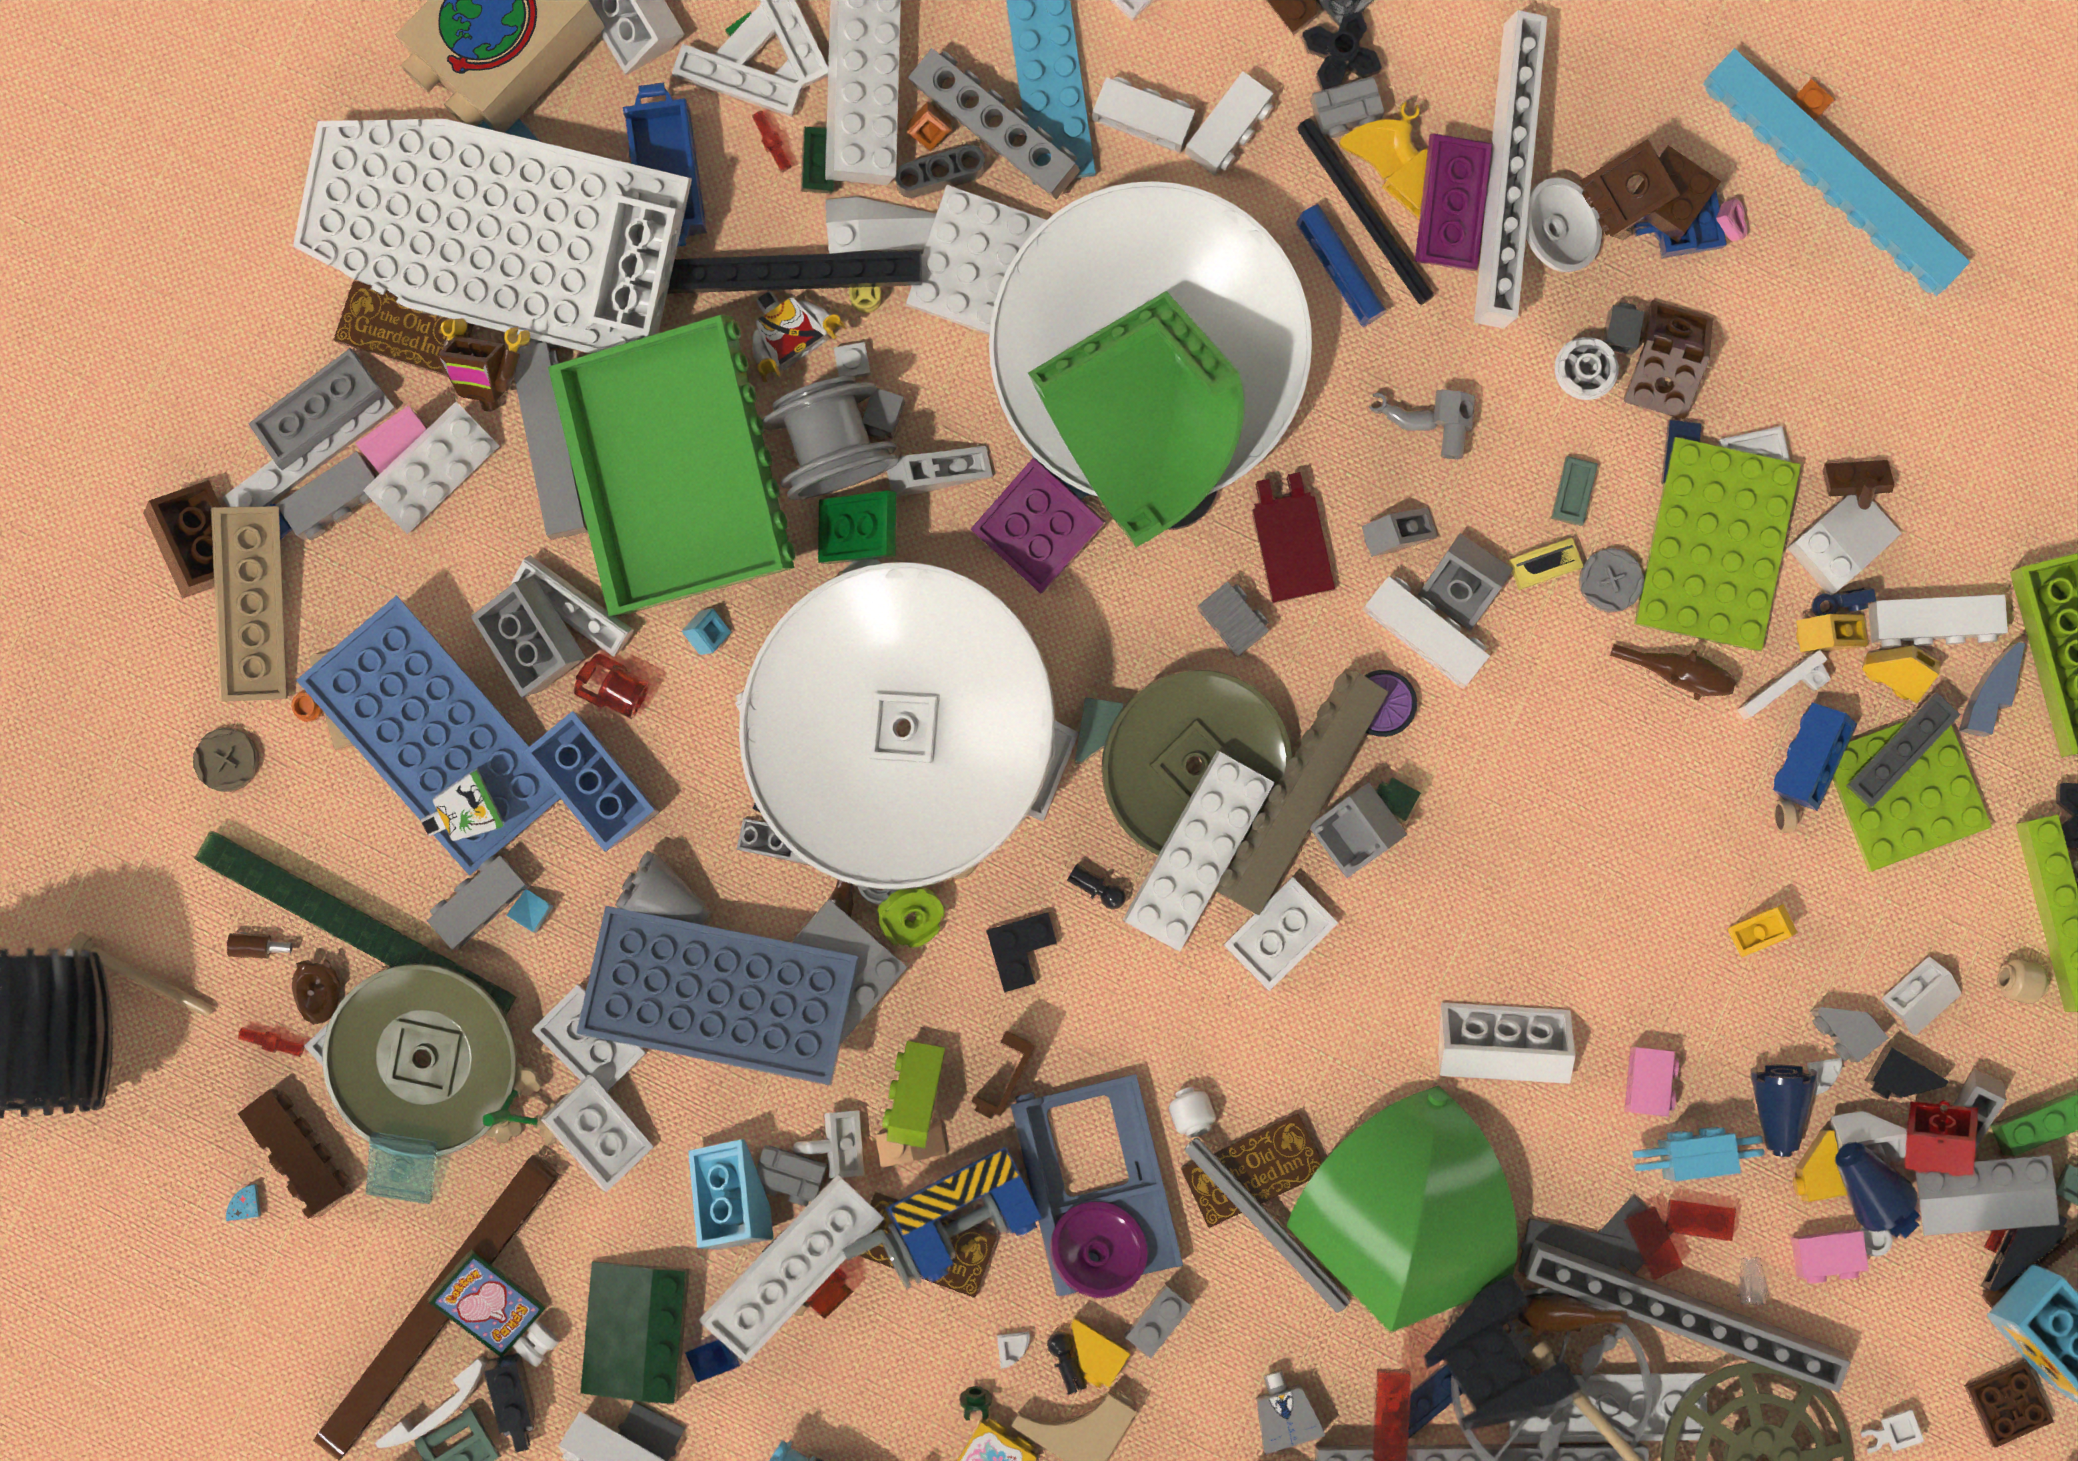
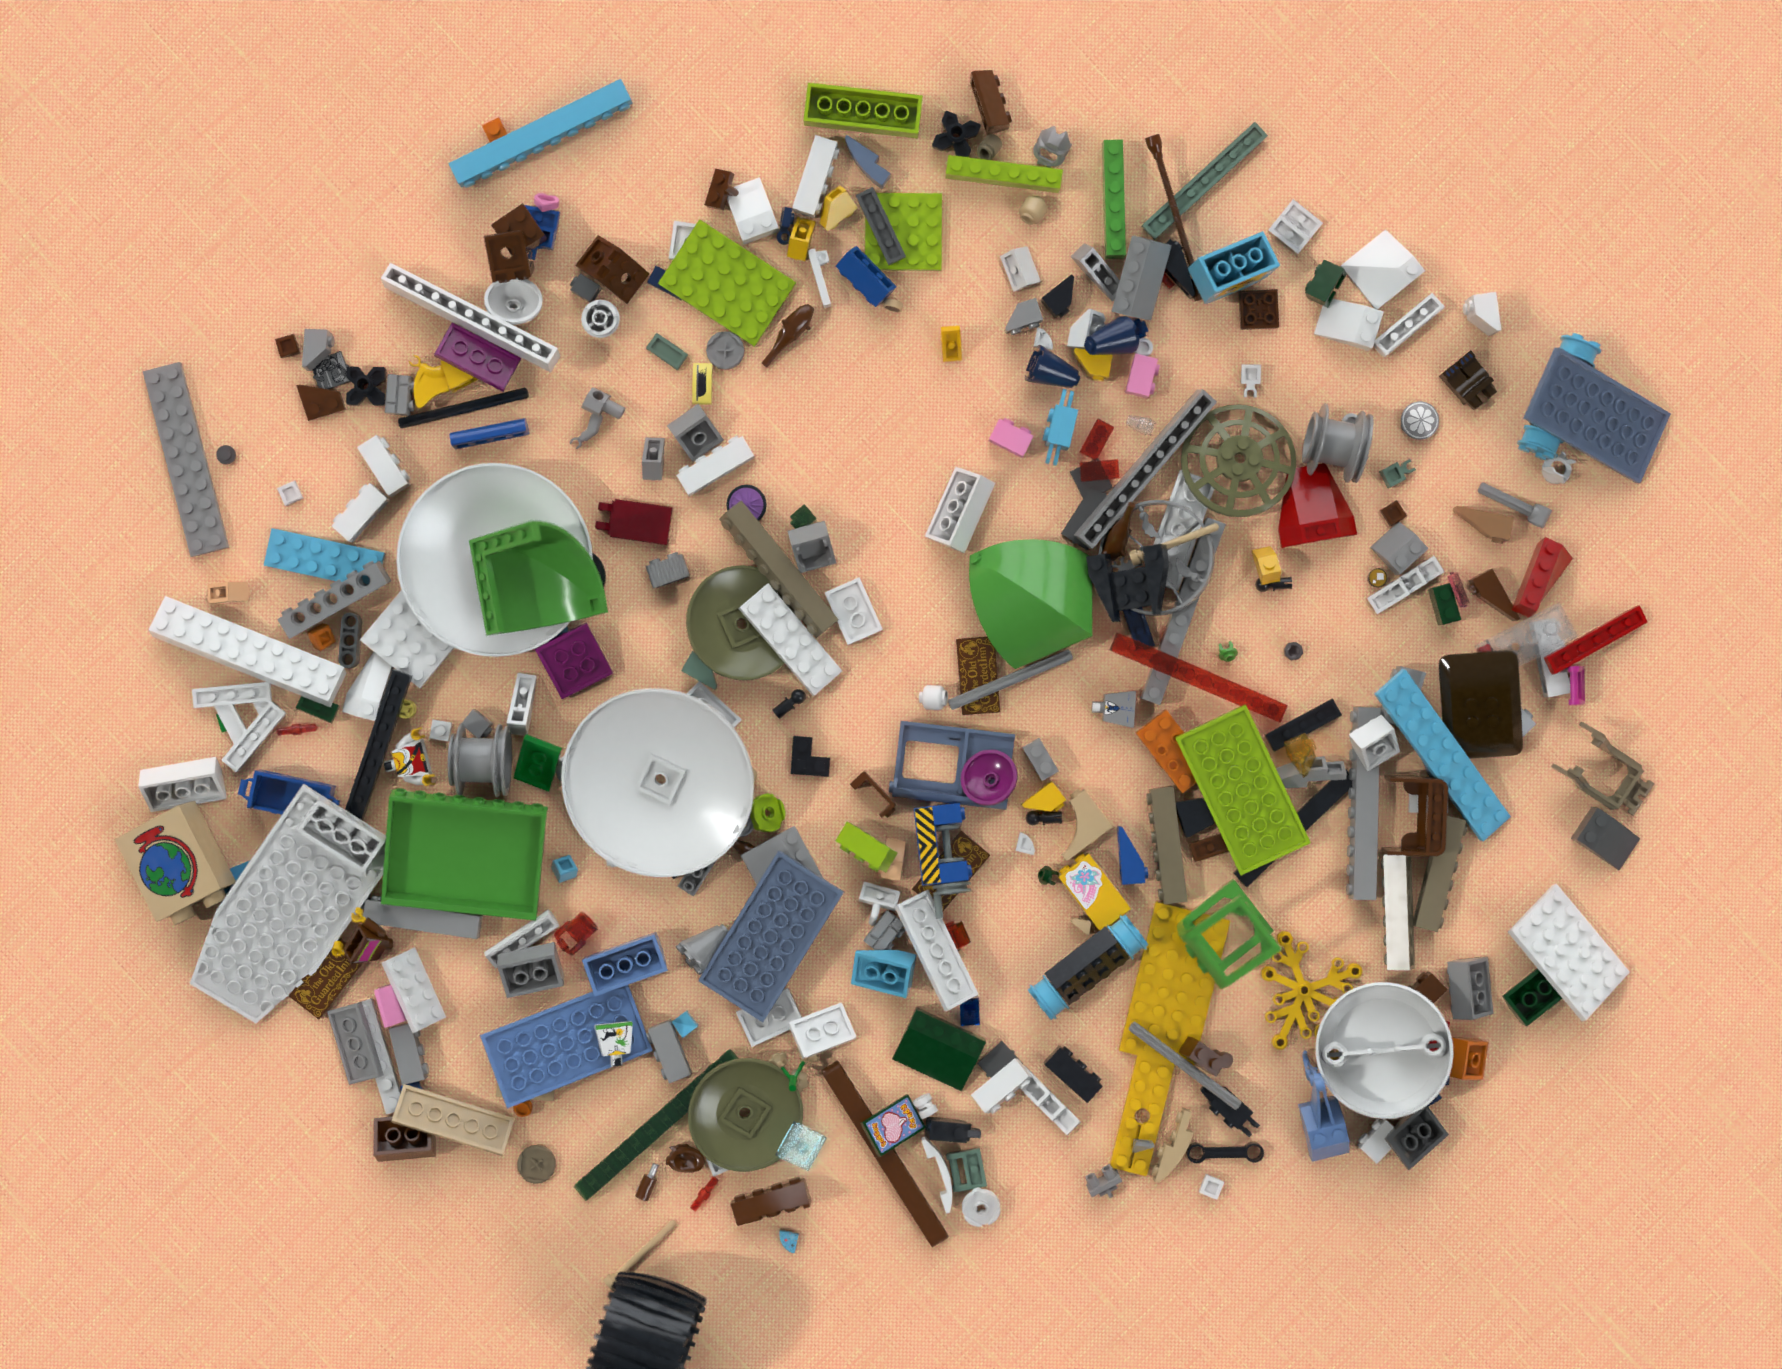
camera: 70 degrees left, 5 degrees up
(1941, 1138) = (1101, 291): red brick -> none

